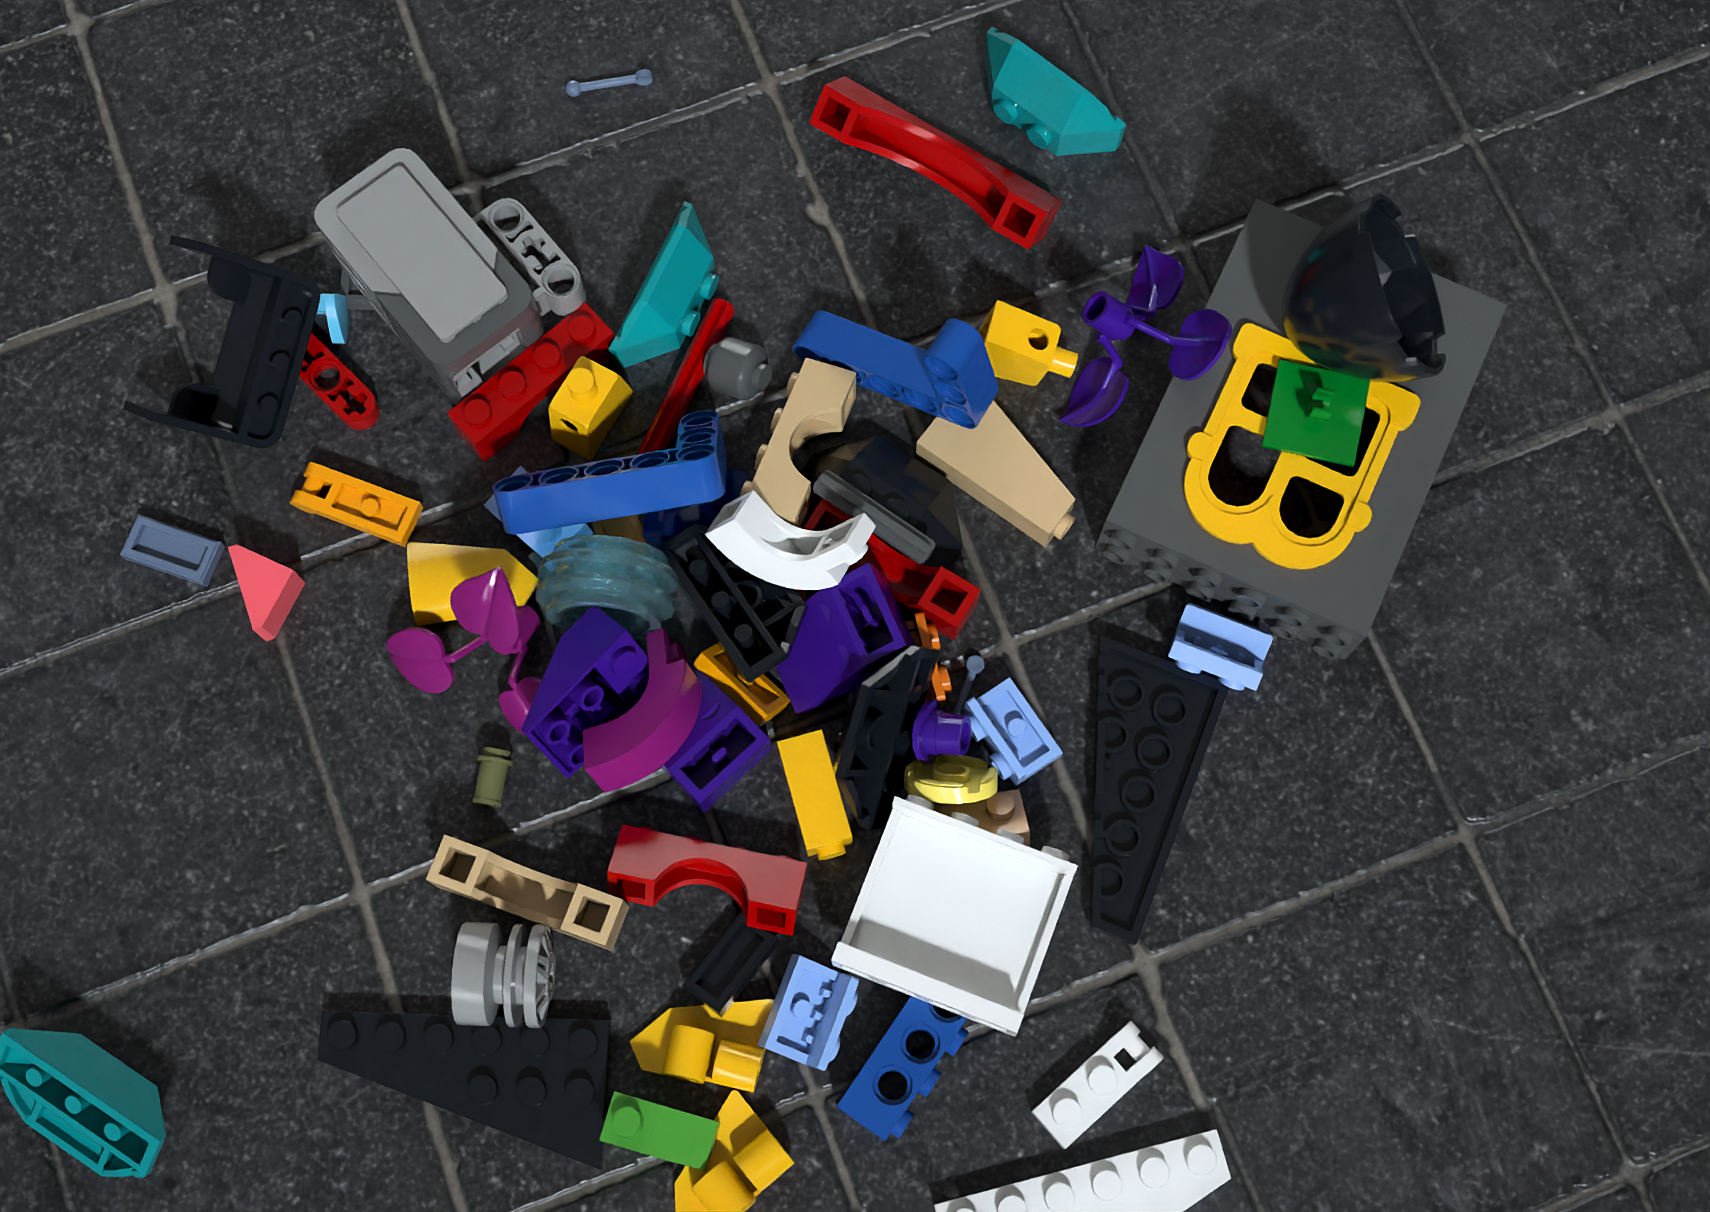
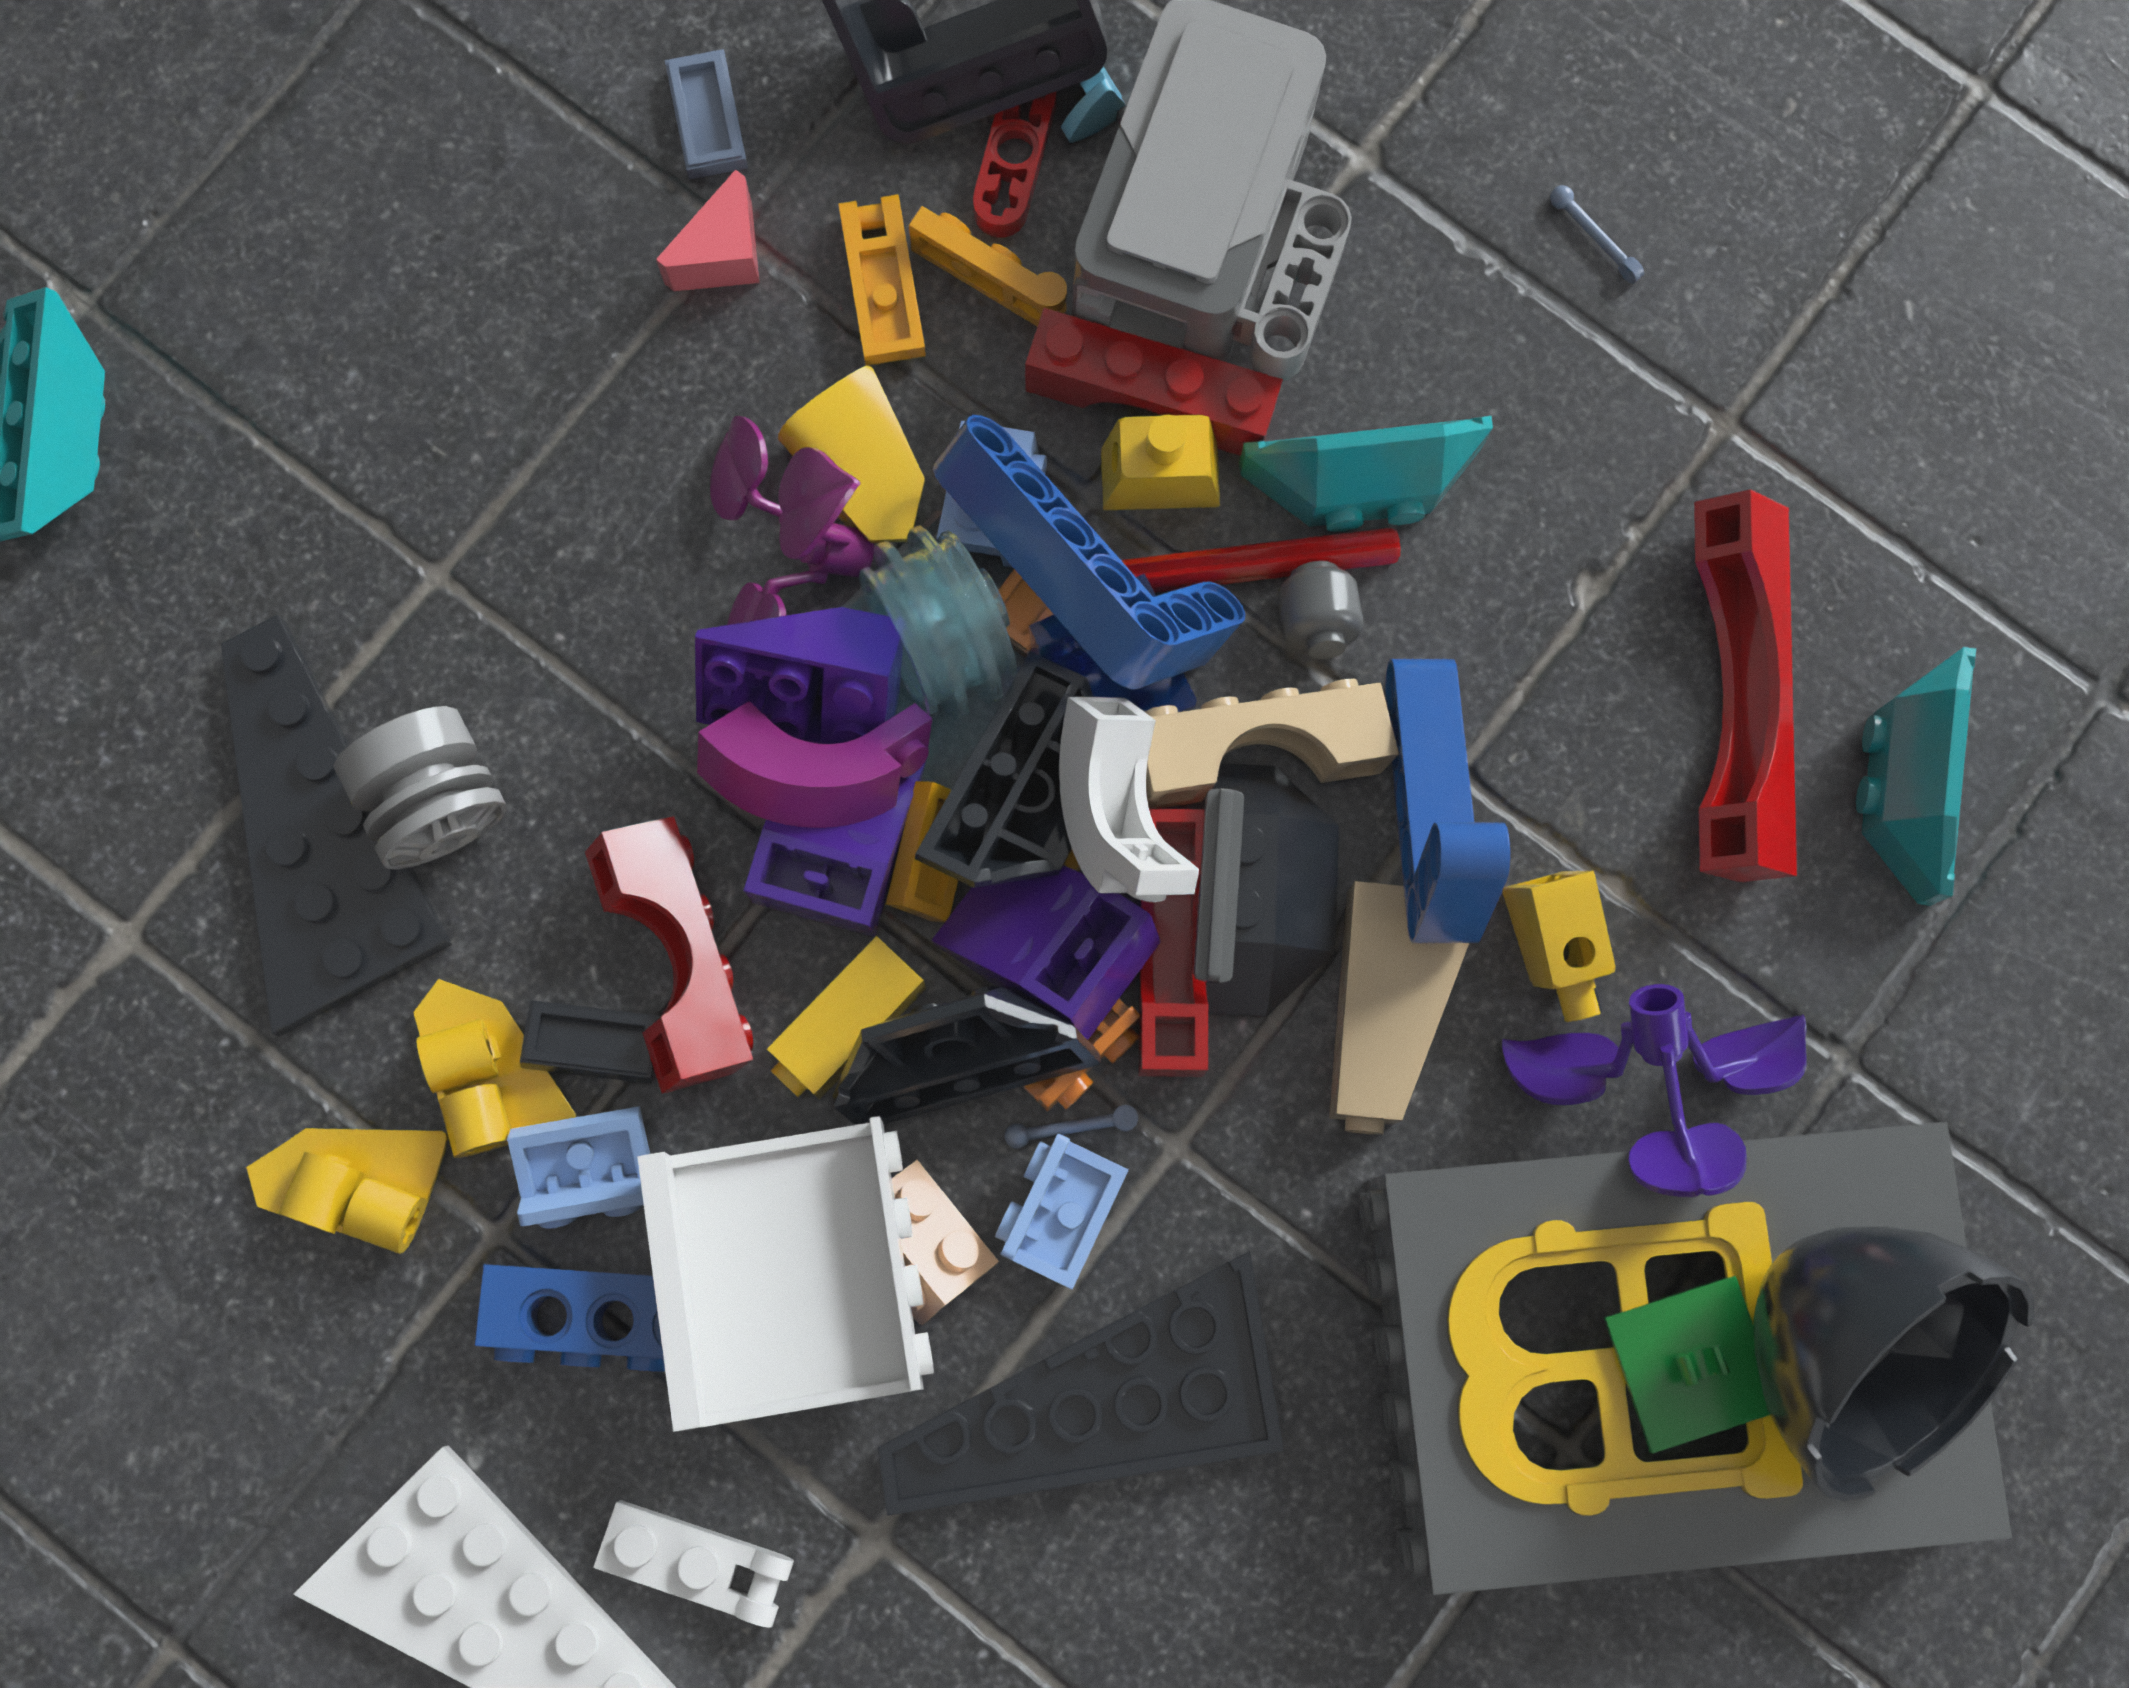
camera: 55 degrees right, 5 degrees up
(394, 436) = (987, 269): none -> light orange plate
(491, 776) = (651, 633): olive pin -> none
(528, 893) = (530, 720): tan arch -> none
(659, 1131) = (347, 1074): bright green slope -> none
(939, 733) = (999, 1123): dark purple piece -> none
(951, 779) = (952, 1173): light yellow tile -> none
(1220, 647) = (1323, 1412): light blue bracket -> none

